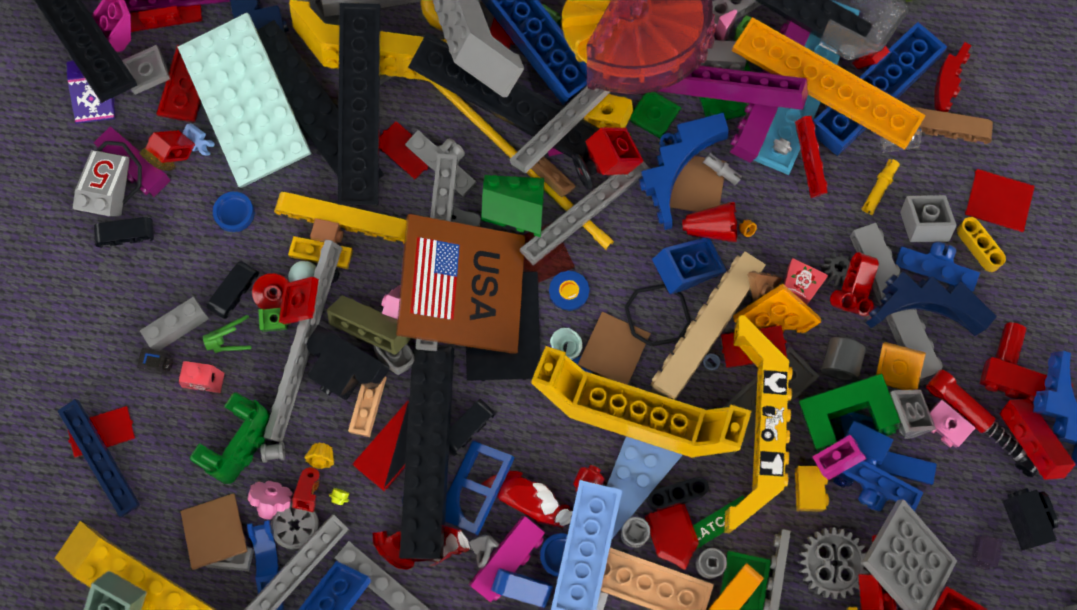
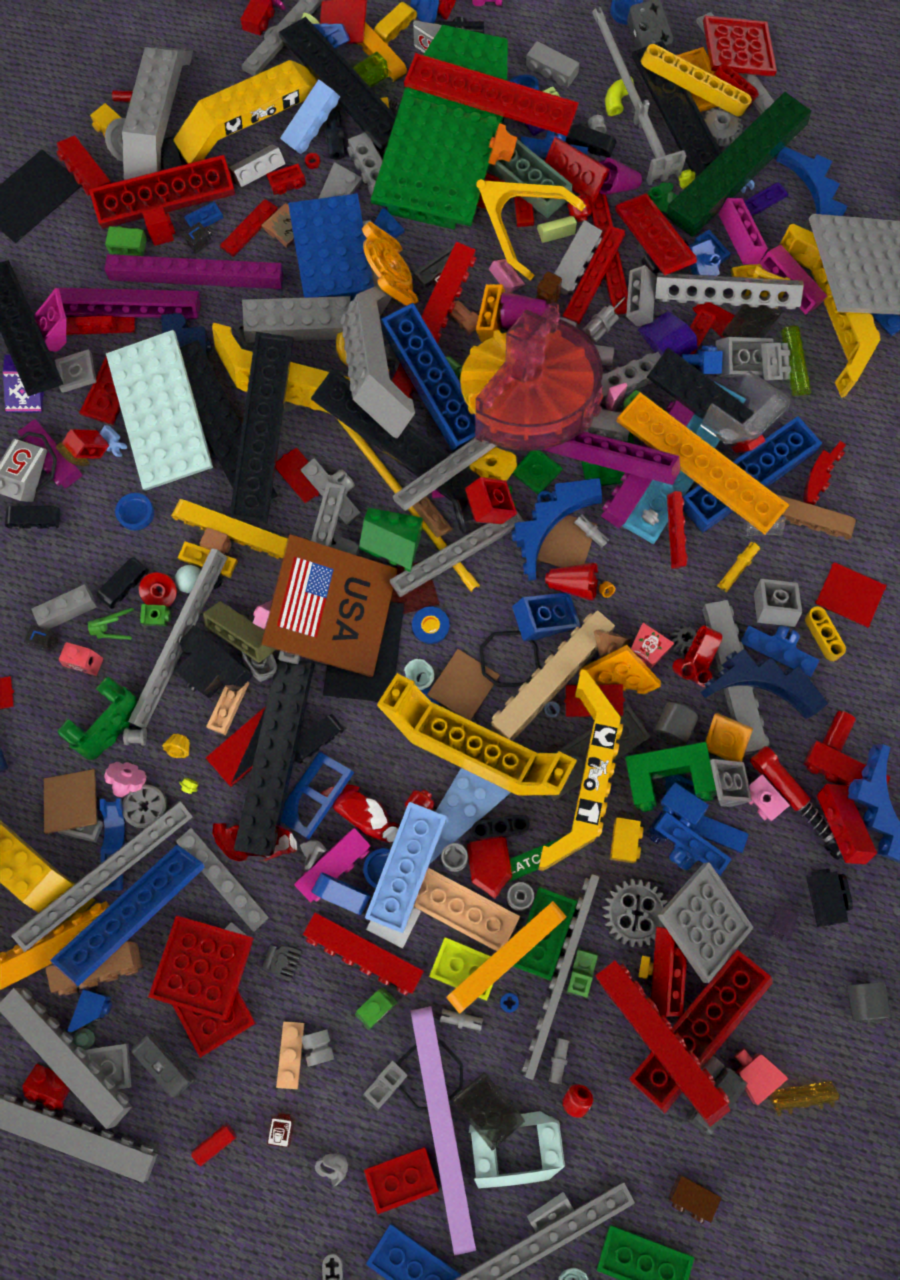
camera: 10 degrees right, 0 degrees up
(298, 300) = (178, 600): red plate -> none
(307, 484) = (156, 778): red leg -> none
(839, 457) = (654, 814): dark pink brick -> none

